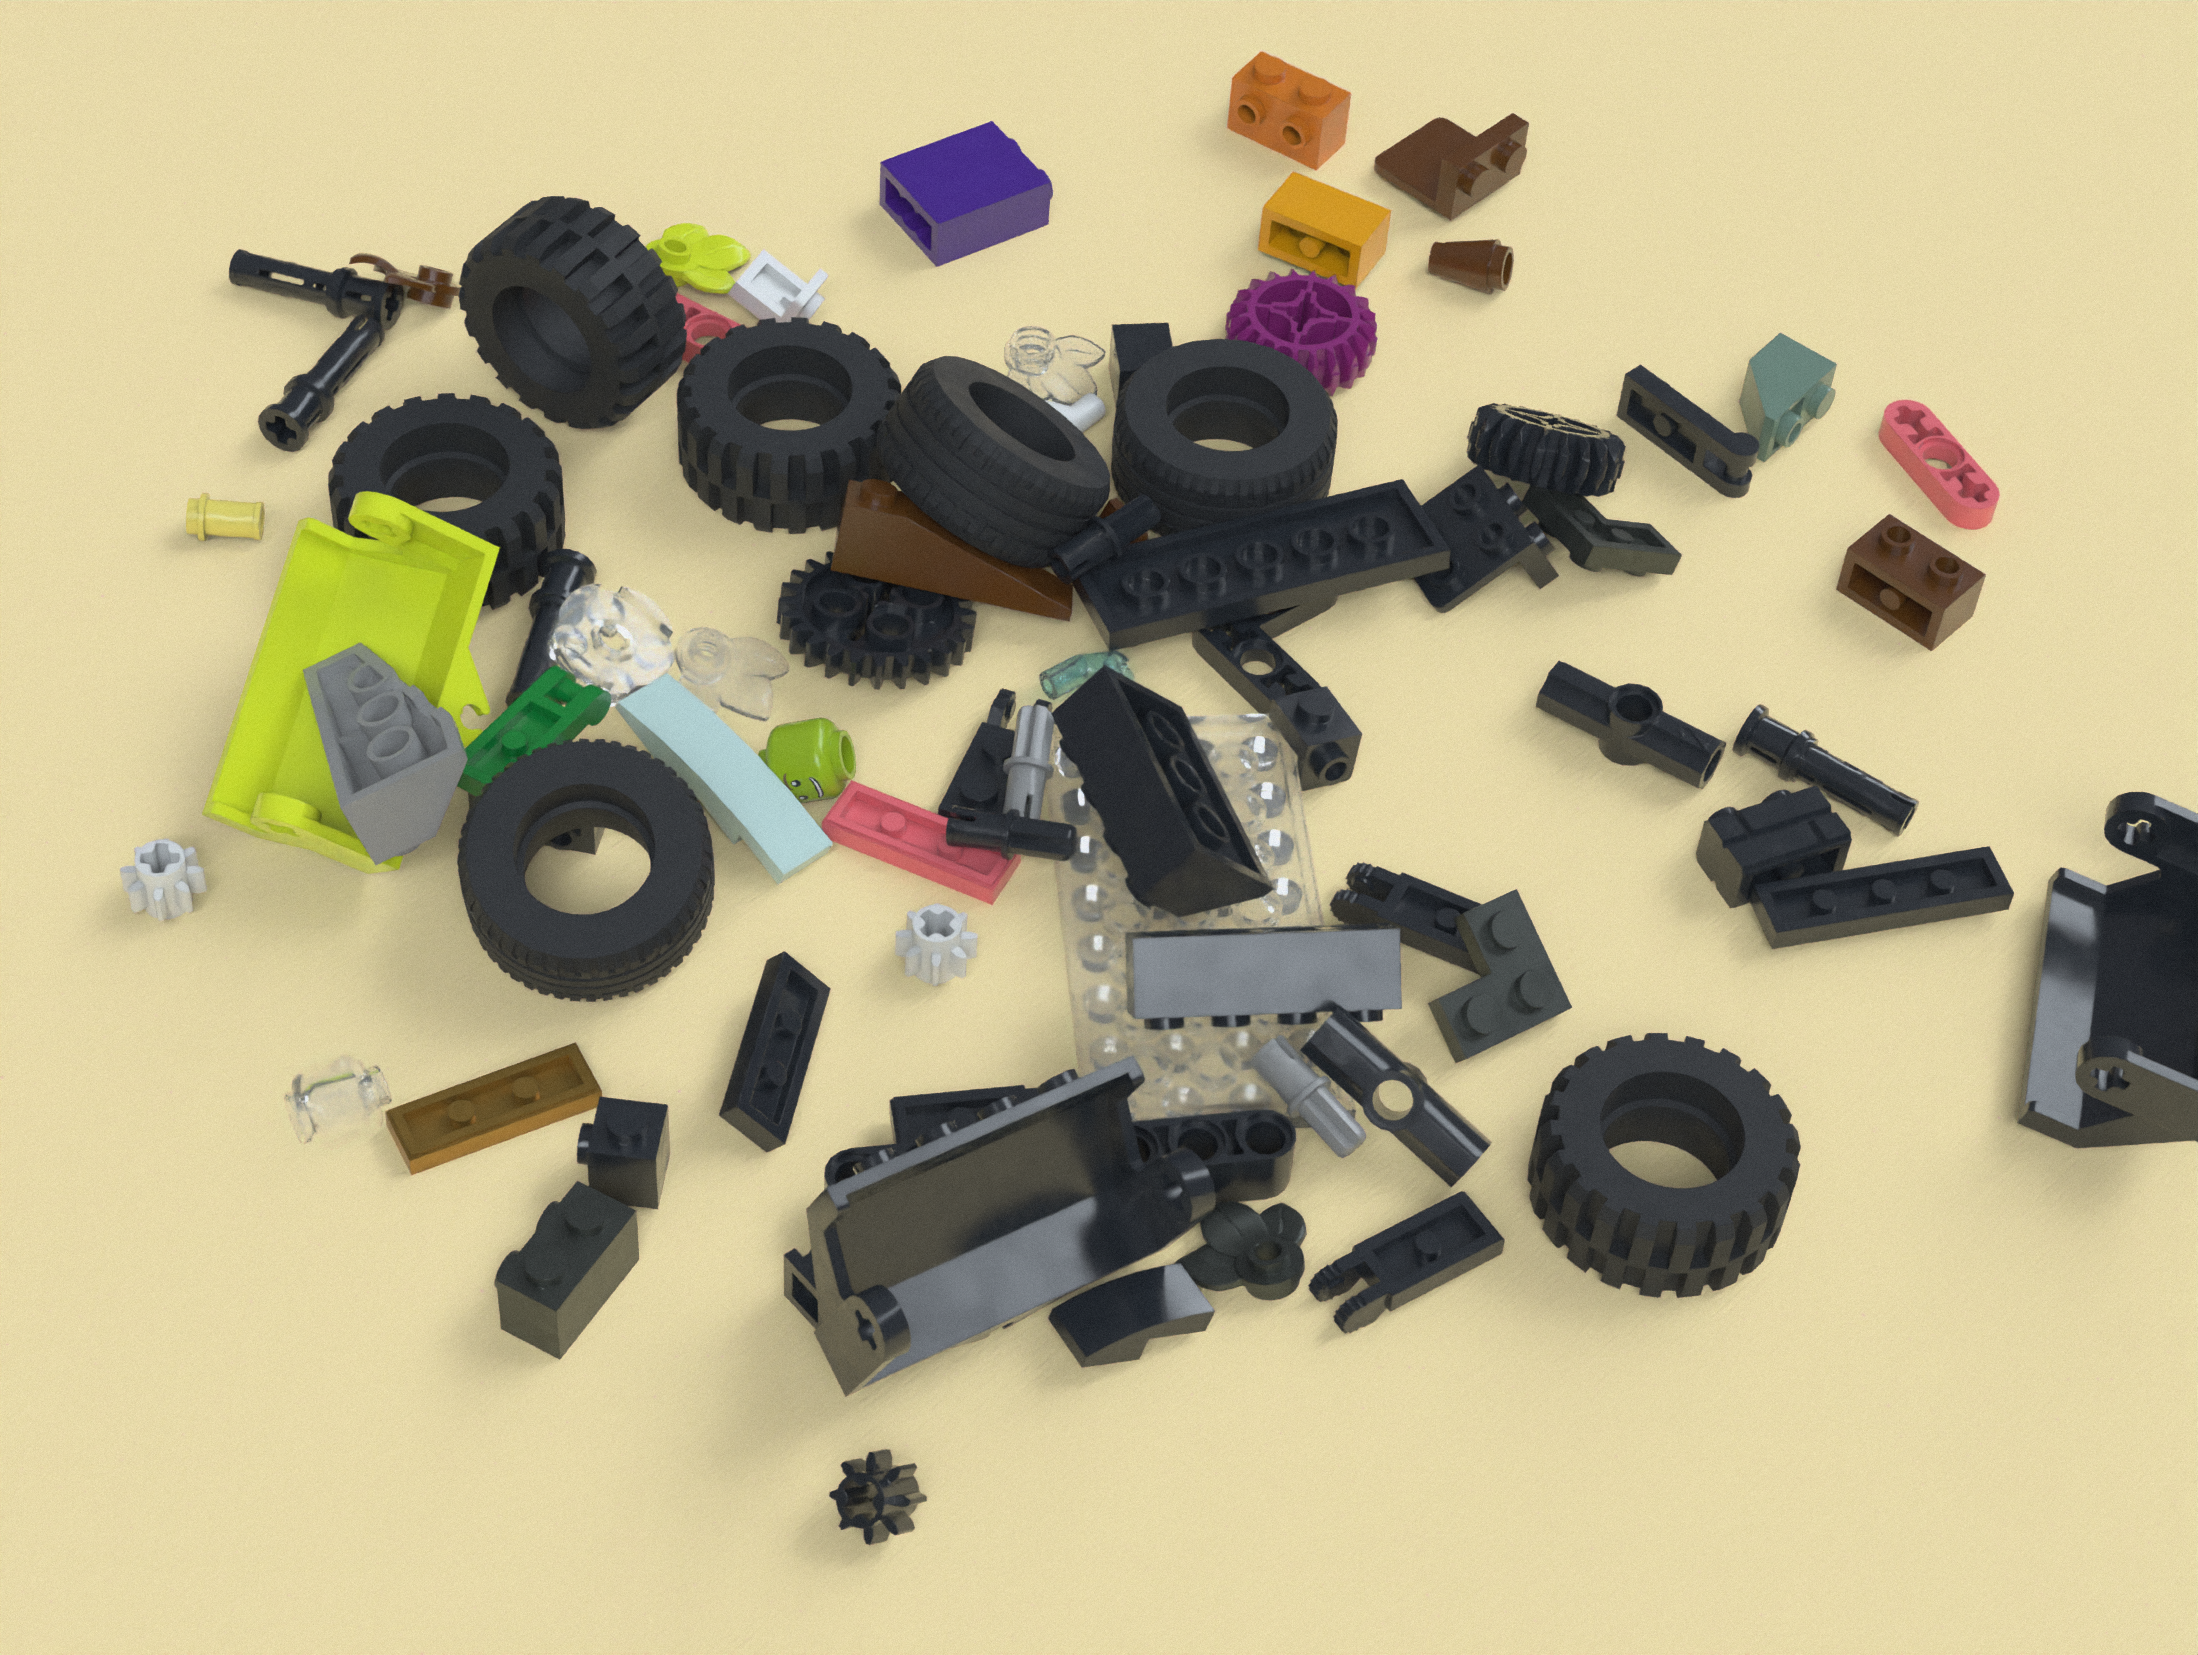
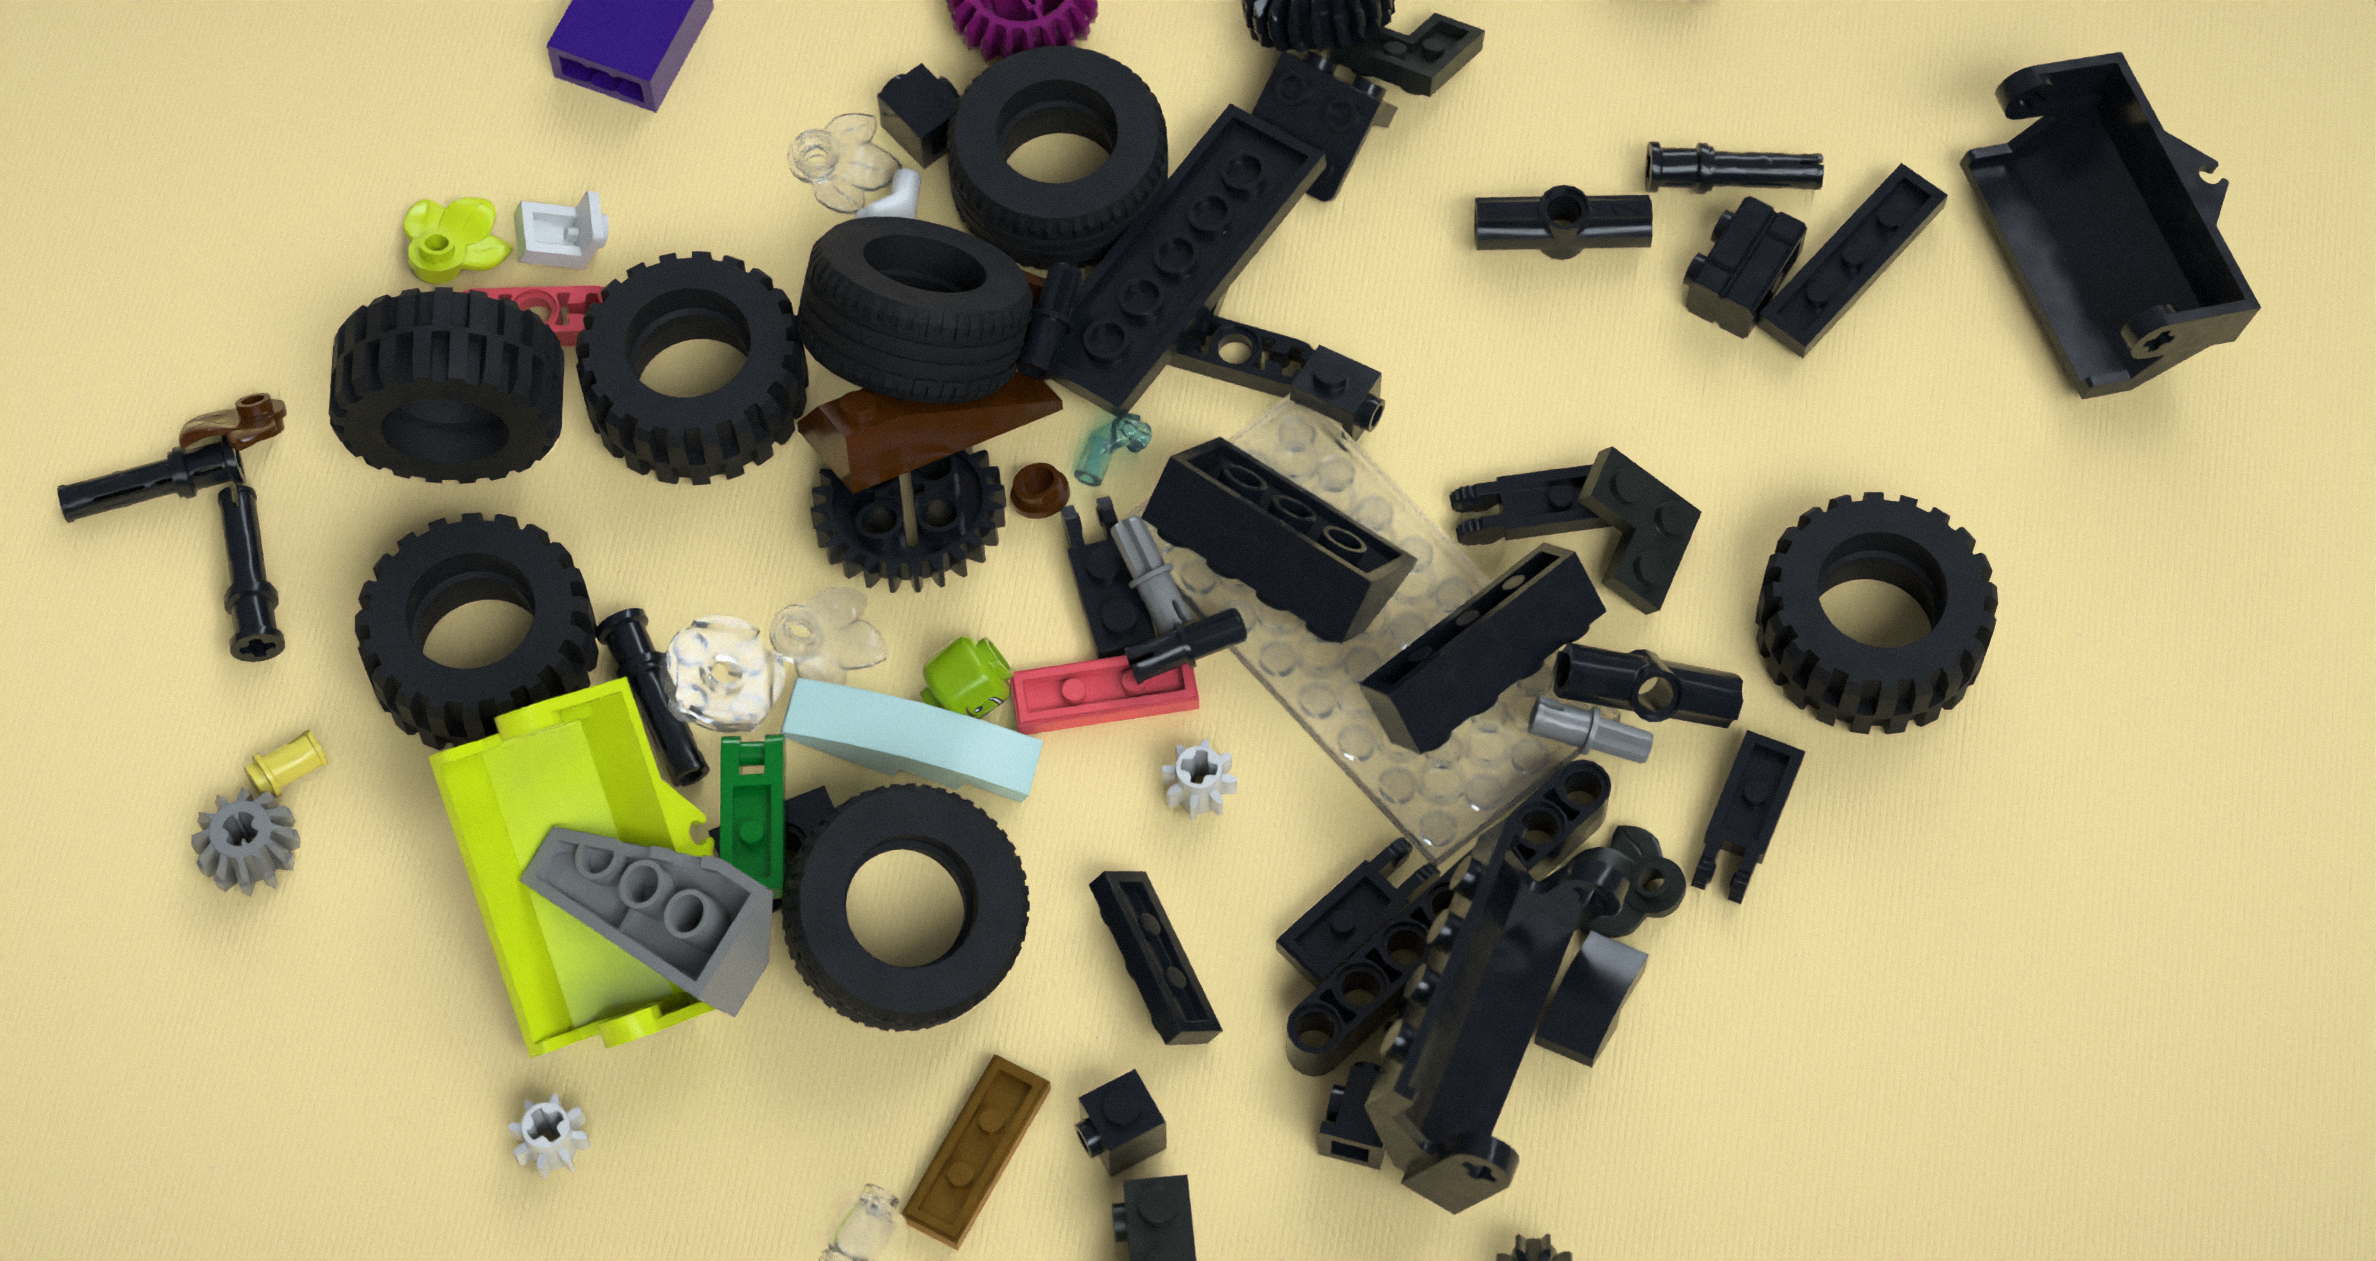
camera: 30 degrees left, 15 degrees up
(142, 547) = (239, 822): none -> light grey gear
(997, 667) = (1039, 491): none -> reddish brown plate

